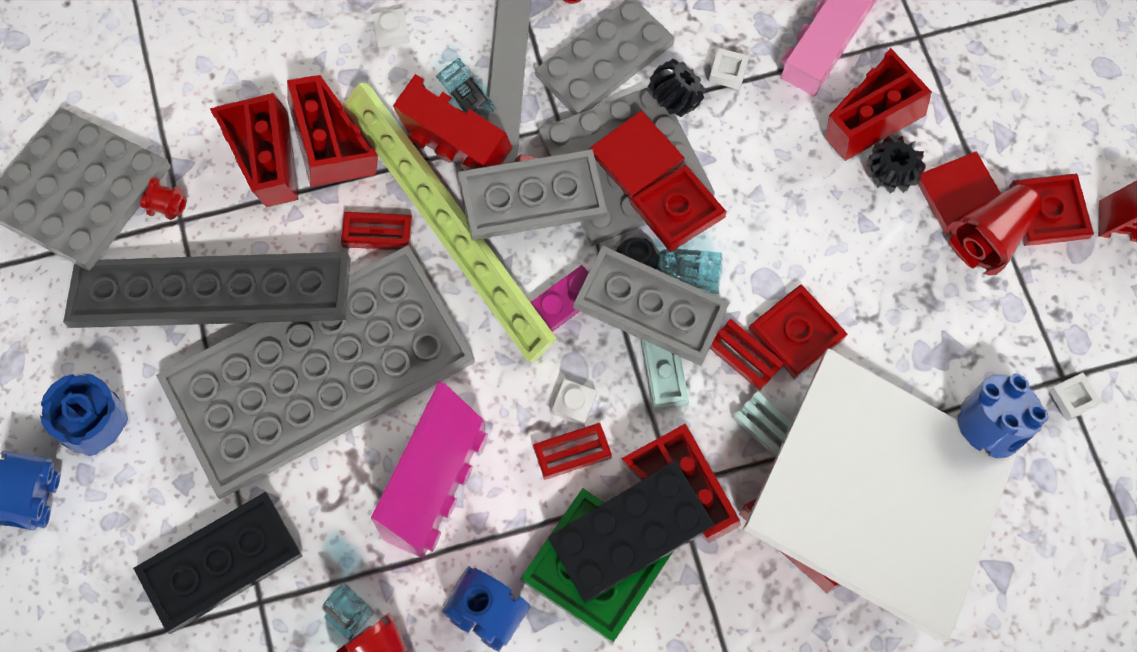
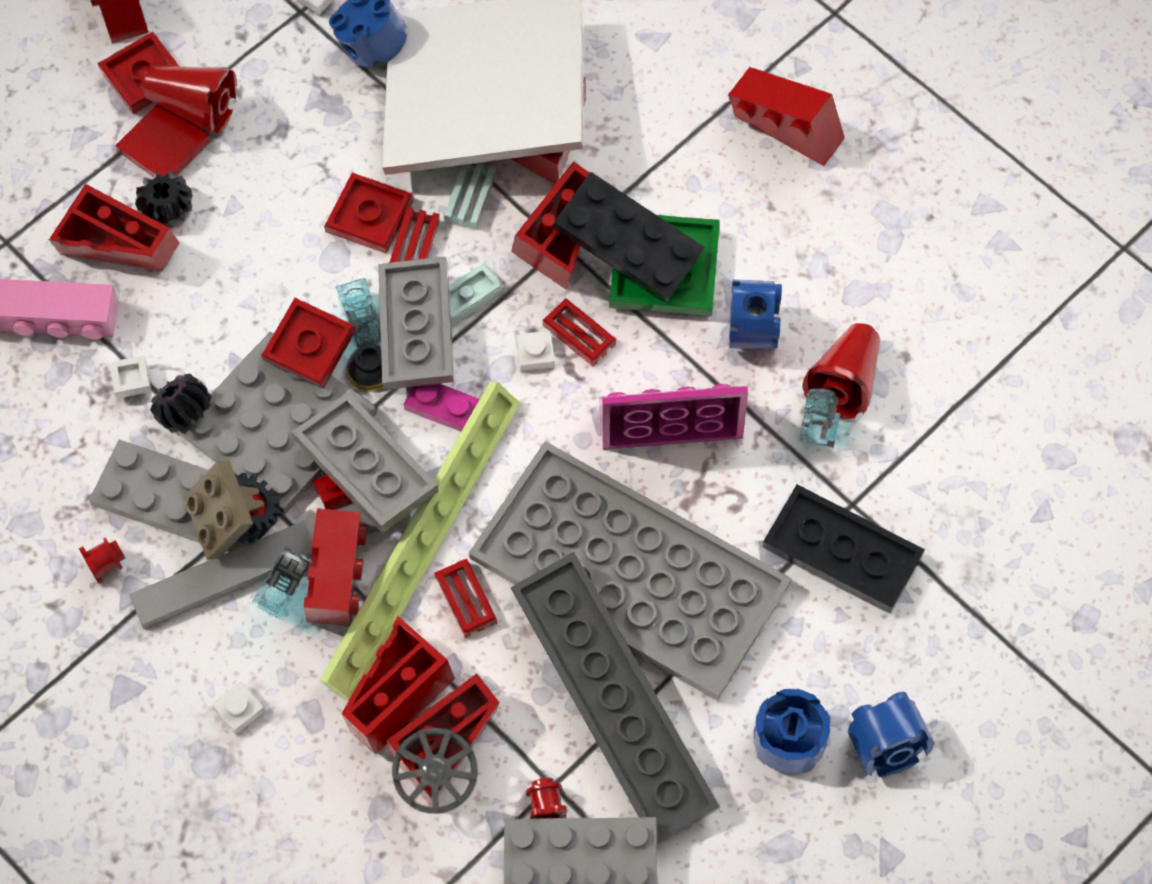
camera: 115 degrees left, 5 degrees down
(224, 114) = (434, 770): none -> dark grey wheel
(547, 84) = (230, 509): none -> dark tan plate
(636, 154) = (271, 402): red tile -> none

